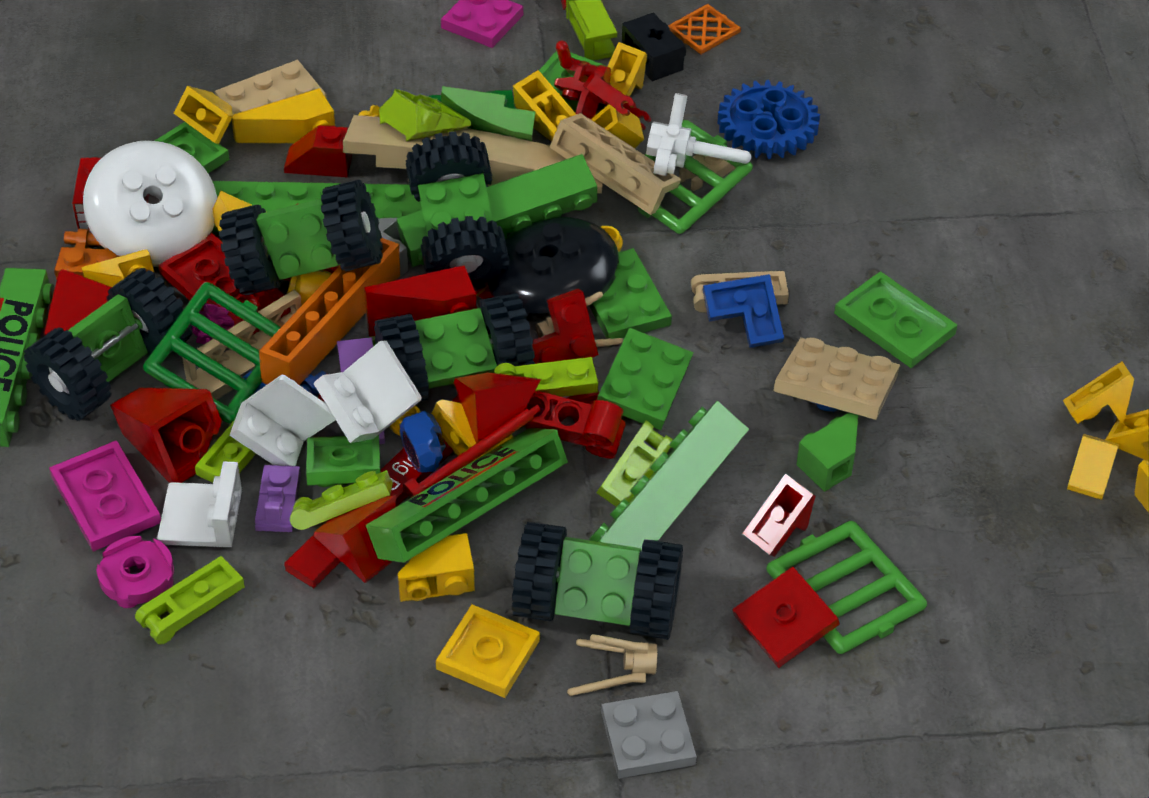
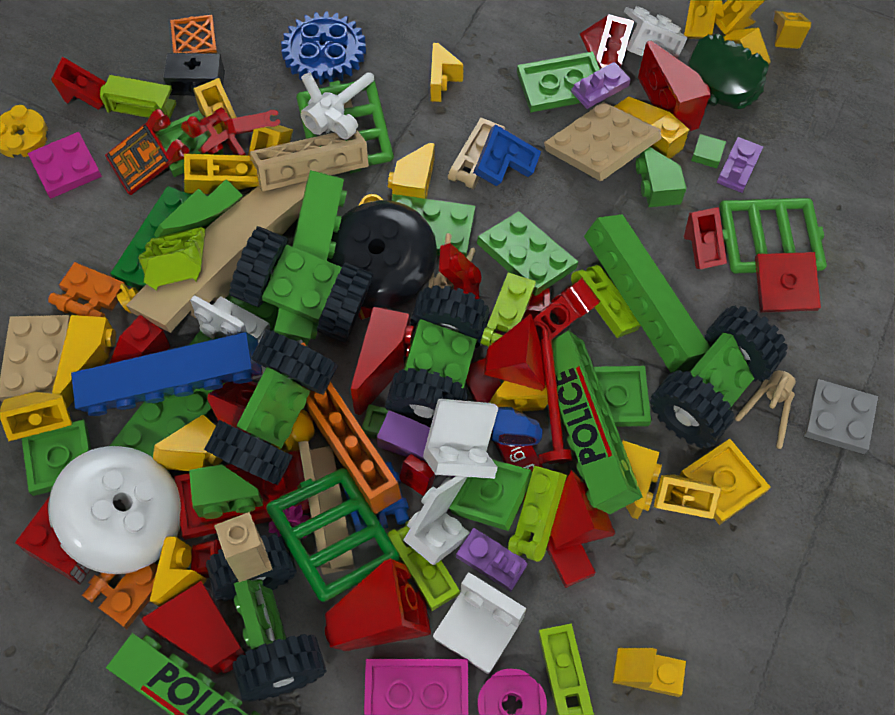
camera: 60 degrees left, 15 degrees up
(136, 259) = (243, 547): none -> tan window
(205, 260) = (221, 491): none -> bright green slope
(235, 672) = (649, 671): none -> yellow slope
(286, 159) = (166, 374): none -> blue brick
(366, 88) = (90, 286): none -> orange plate
(387, 189) = (226, 319): none -> white bracket
(437, 607) = (687, 496): none -> yellow slope
(531, 54) = (143, 155): none -> flag
(531, 504) = (625, 394): none -> bright green plate
(671, 252) = (413, 173): none -> yellow slope
(817, 215) = (444, 68): none -> yellow slope
(898, 420) = (672, 130): none -> yellow slope
(911, 346) = (600, 85): none -> medium lavender plate
(915, 485) = (708, 151): none -> bright green tile
(922, 521) = (739, 164): none -> medium lavender plate
(947, 411) = (673, 85): none -> red slope
(985, 340) = (608, 39): none -> red slope
(1023, 446) = (729, 70): none -> dark green animal
(1024, 363) = (657, 29): none -> white bracket

